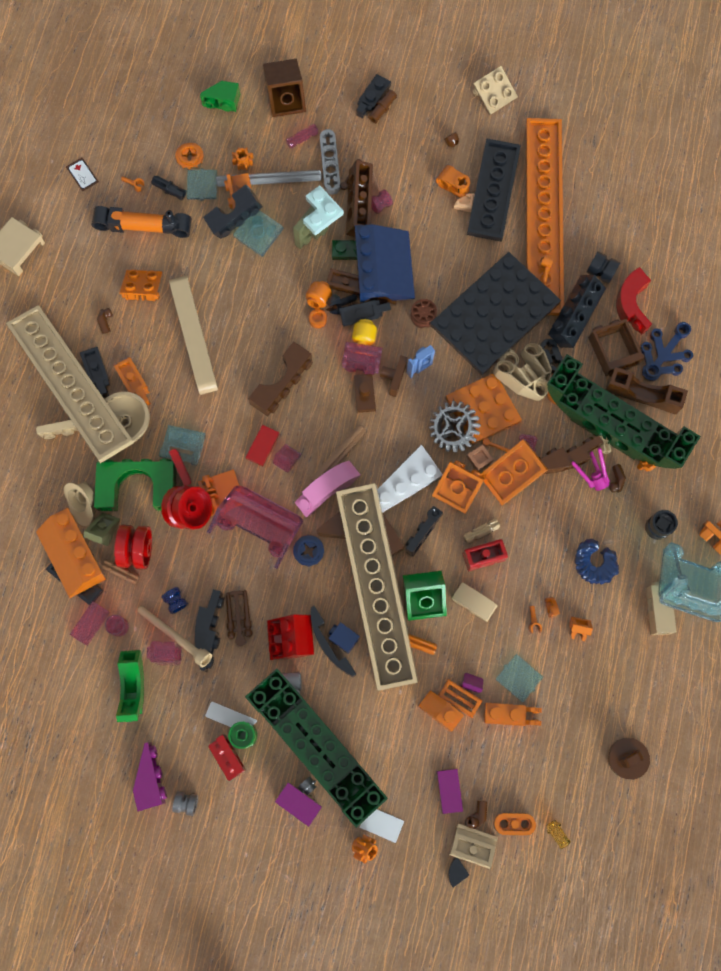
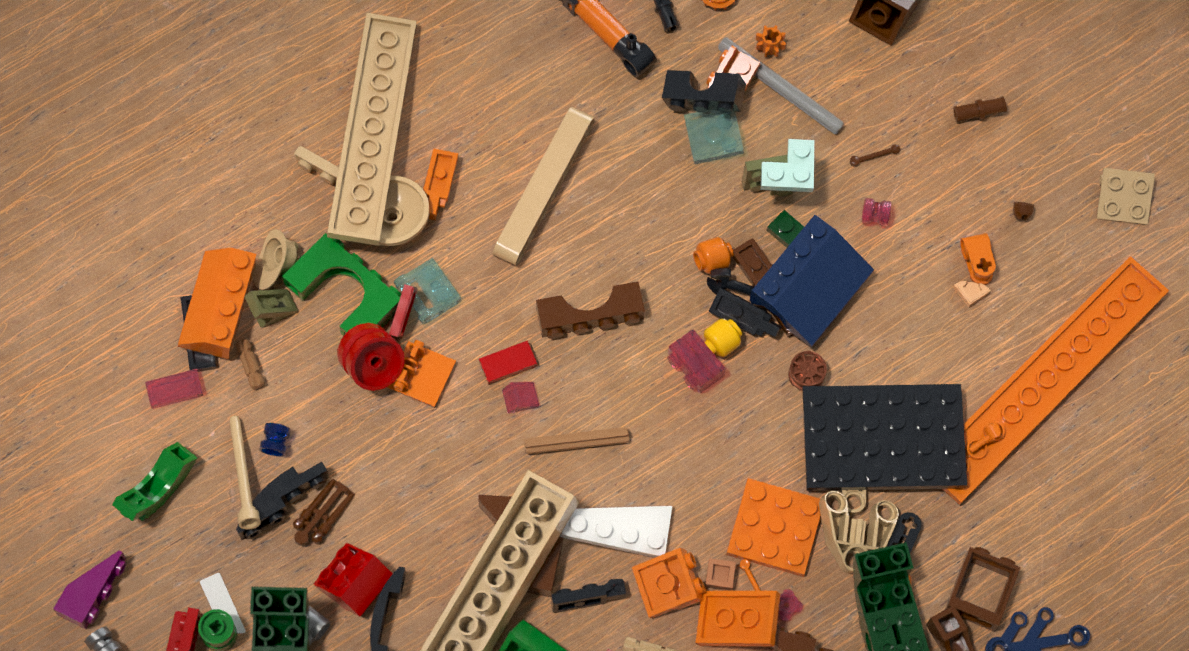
camera: 40 degrees right, 5 degrees down
(96, 369) = (412, 138): black hinge -> none
(102, 320) = (466, 90): reddish brown arm -> none
(114, 622) = (196, 408): clear pink wheel -> none
(133, 546) = (283, 349): red wheel -> none
(141, 283) = (540, 86): orange hinge -> none
(164, 653) = (217, 482): clear pink brick -> none
(201, 184) = (703, 32): clear light blue piece -> none
(260, 518) = (434, 432): clear pink windscreen -> none
(302, 136) = (860, 69): clear pink axle -> none
(311, 542) = (445, 501): dark blue gear -> none
(317, 318) = (690, 279): orange tile -> none
(325, 486) = (542, 459): bright pink arch -> none
(330, 161) = (863, 122): light grey beam -> none
(343, 637) = (405, 627): dark blue brick -> none
(359, 196) = (856, 187): reddish brown brick -> none
(364, 393) = (664, 401): reddish brown tile -> none
(373, 93) = (983, 87): black hinge -> none
(395, 375) = (713, 410): reddish brown tile -> none
(423, 359) = (752, 418): medium blue plate -> none
(448, 430) = (720, 499): light grey gear -> none
(493, 190) = (1015, 304): black plate -> none
(577, 311) = (976, 512): black brick -> none
(603, 267) = (1054, 494): black wheel -> none
(626, 300) = (1060, 541): red arch -> none

